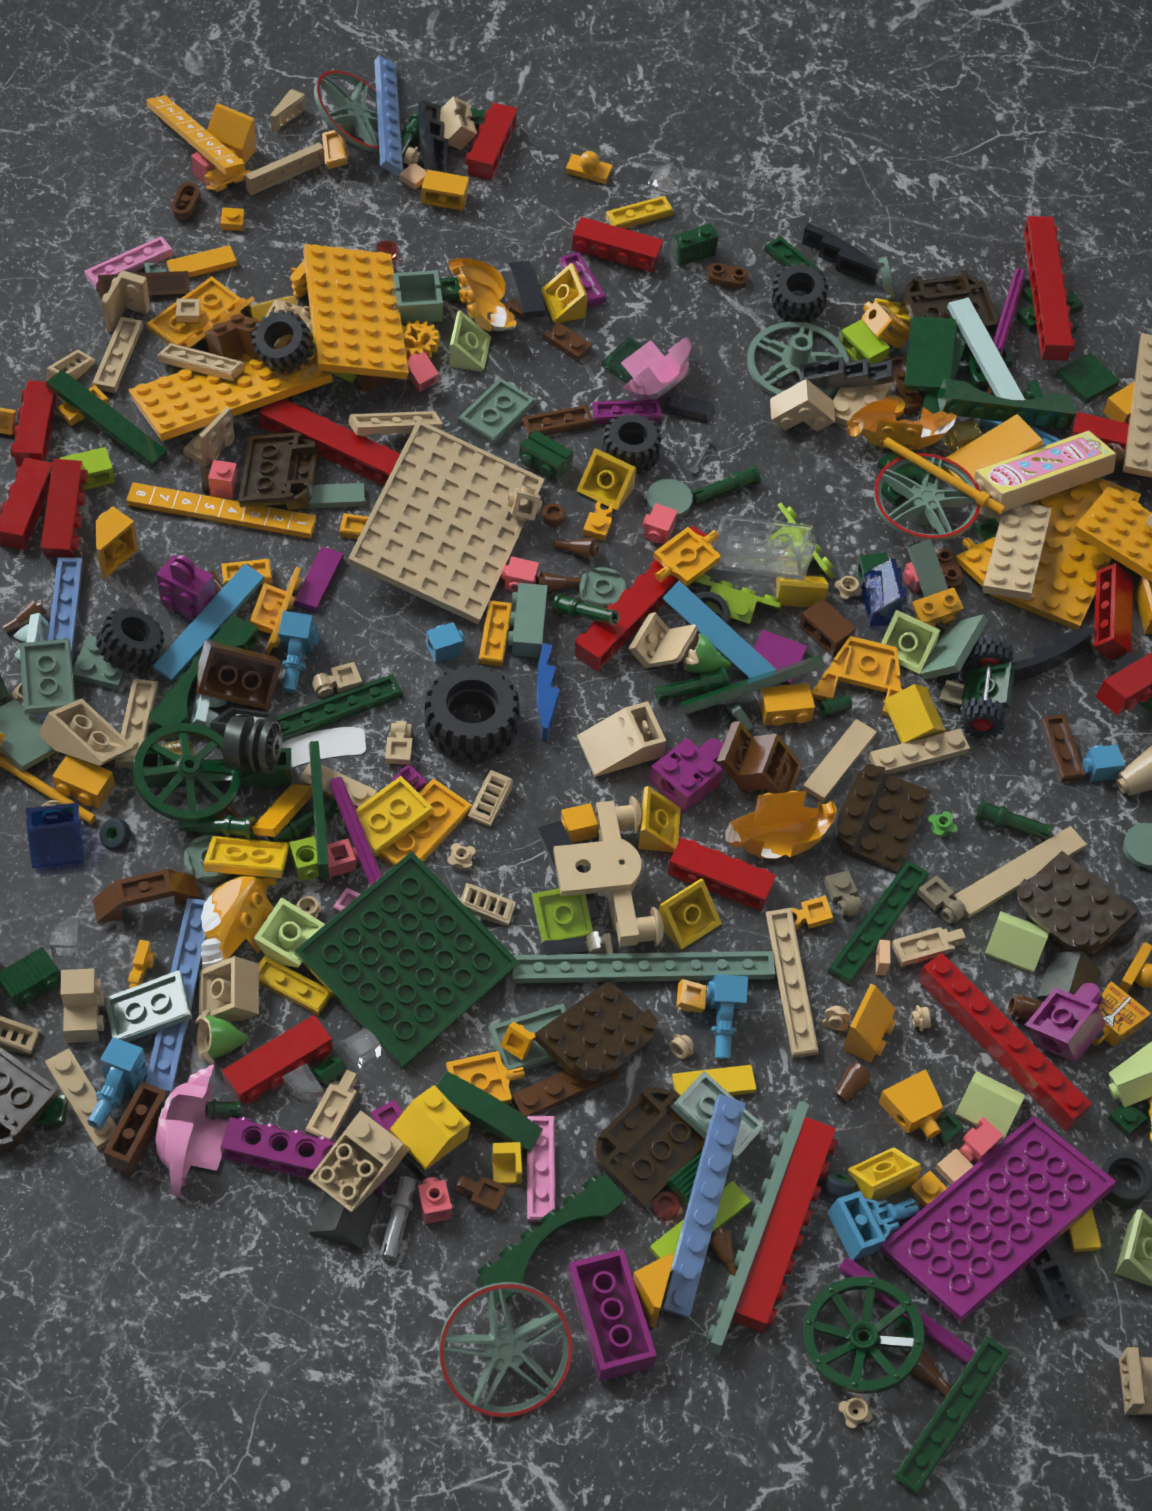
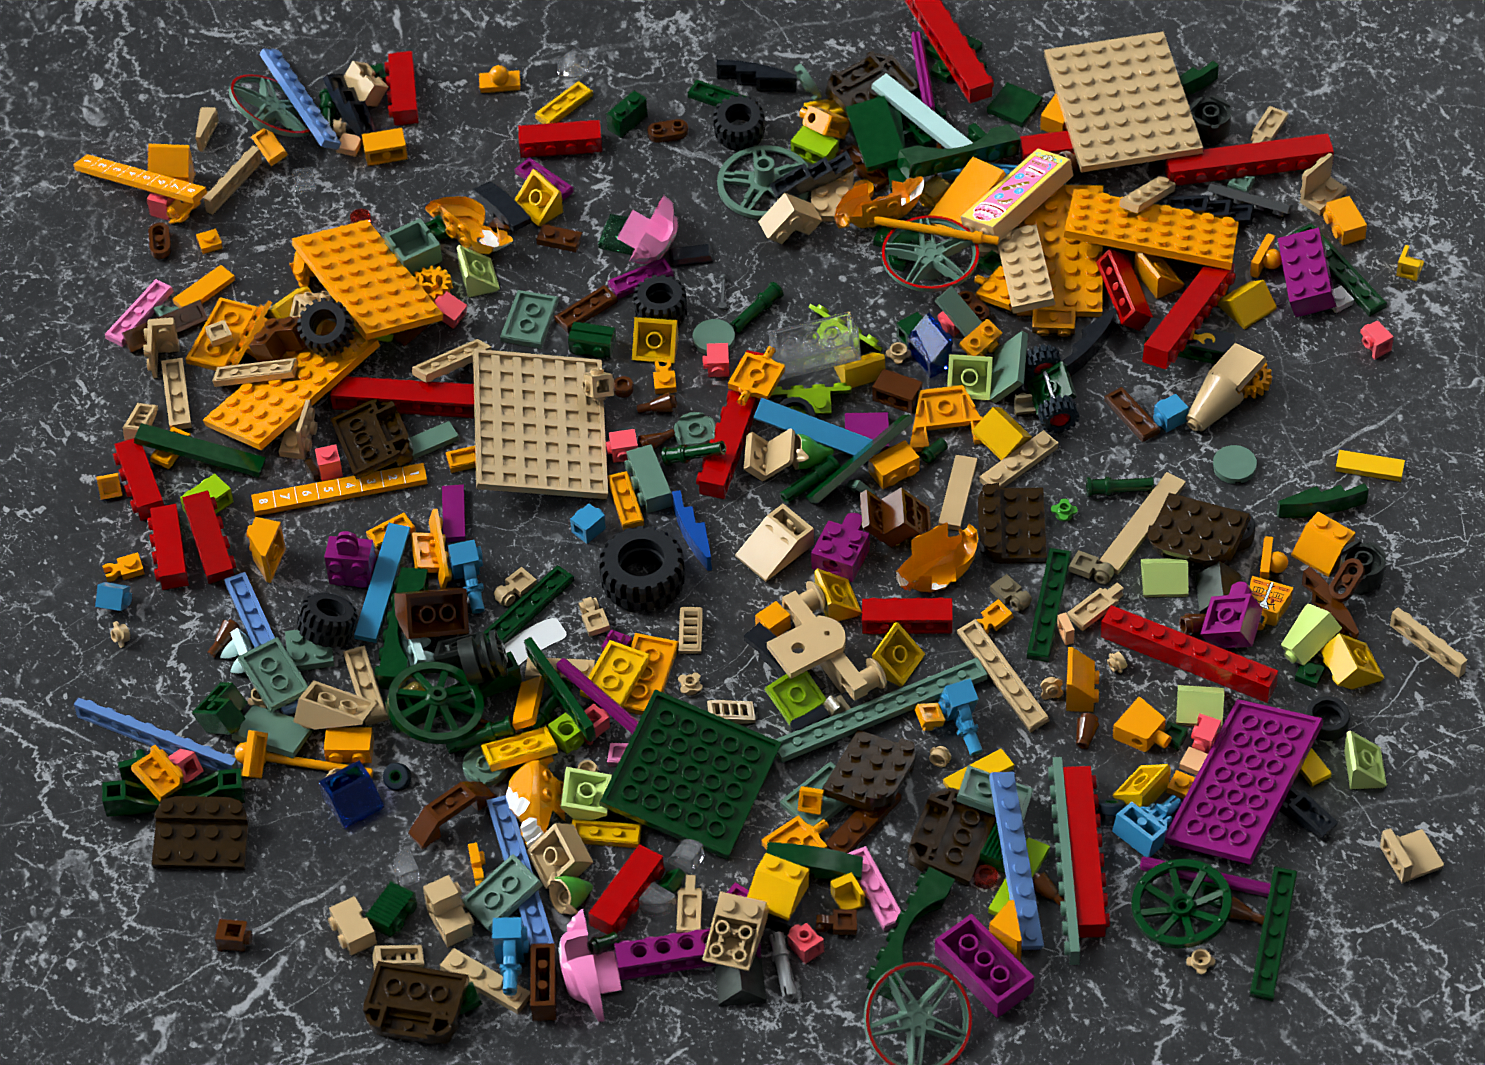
camera: 15 degrees left, 5 degrees down
(1025, 615) = (1054, 320): none -> light orange bracket

